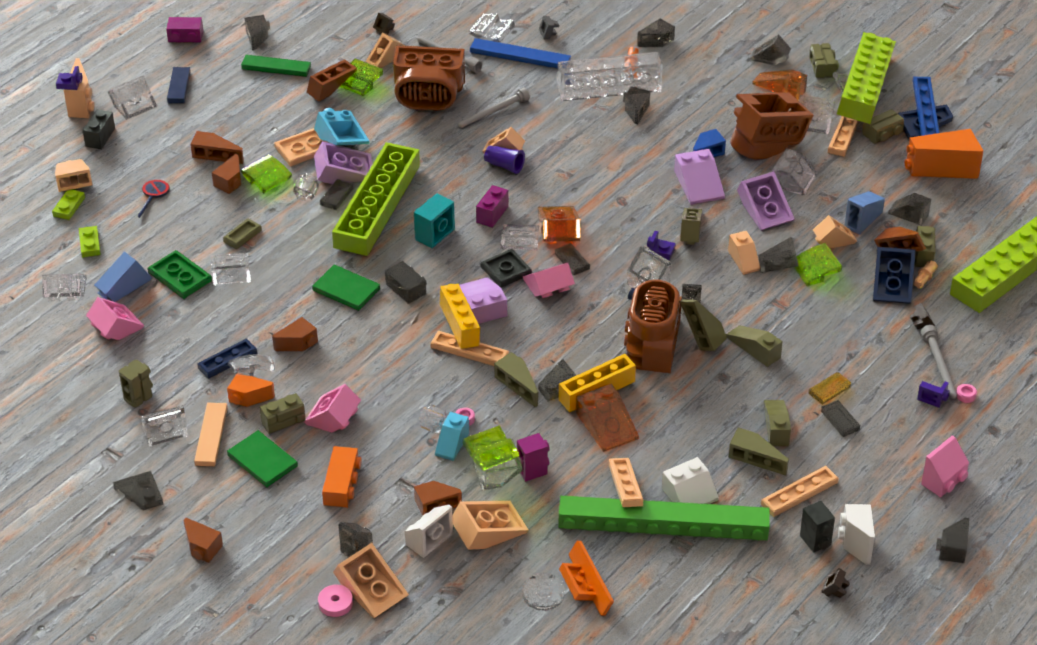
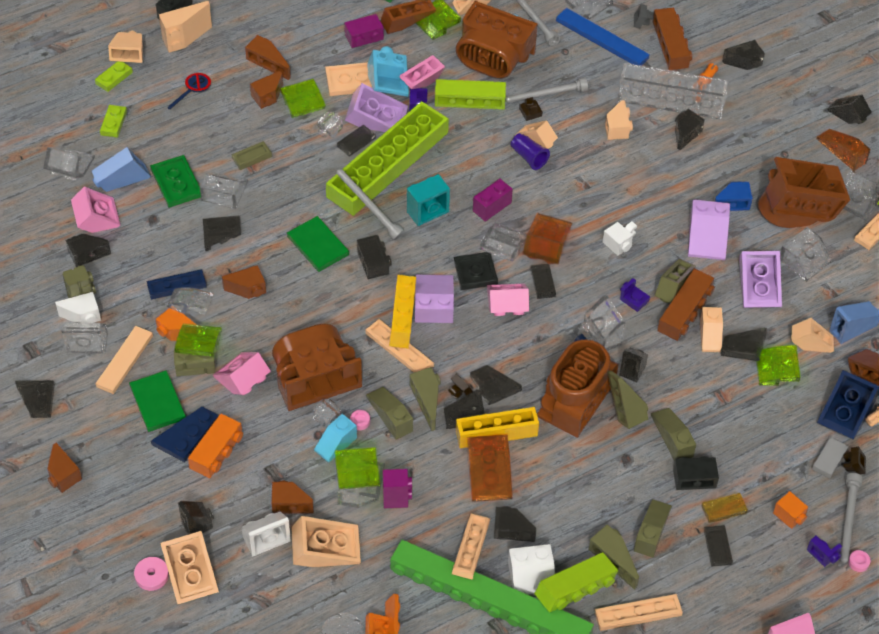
camera: 20 degrees right, 10 degrees up
(119, 142) = (185, 25): none -> light nougat slope
(123, 351) = (87, 248): none -> clear smoke slope
(143, 402) = (79, 309): none -> white slope
(245, 302) = (220, 230): none -> clear smoke wing
(280, 391) = (198, 340): none -> clear neon green slope
(295, 103) = (364, 30): none -> magenta brick
(305, 478) = (186, 434): none -> dark blue wing
(375, 119) = (423, 73): none -> bright pink slope
(376, 144) = (416, 96): none -> dark purple bracket
(403, 381) = (315, 366): none -> dark orange brick
(413, 255) = (393, 229): none -> light grey piece
(425, 128) = (470, 94): none -> lime brick
(486, 127) = (530, 109): none -> dark brown tile
(492, 400) = (391, 412): none -> olive slope
(544, 362) = (459, 387): none -> dark brown tile
(573, 116) = (618, 122): none -> light nougat slope
(573, 352) = (494, 384): none -> clear smoke wing
(583, 36) = (672, 38): none -> dark orange brick
(623, 205) = (619, 238): none -> white brick
(653, 456) = (513, 525): none -> clear smoke slope
(711, 240) = (686, 304): none -> dark orange brick
(736, 480) = (576, 582): none -> lime brick
(791, 367) = (695, 473): none -> pearl dark grey brick
(889, 370) = (791, 510): none -> orange brick
(899, 322) = (830, 458): none -> light grey tile

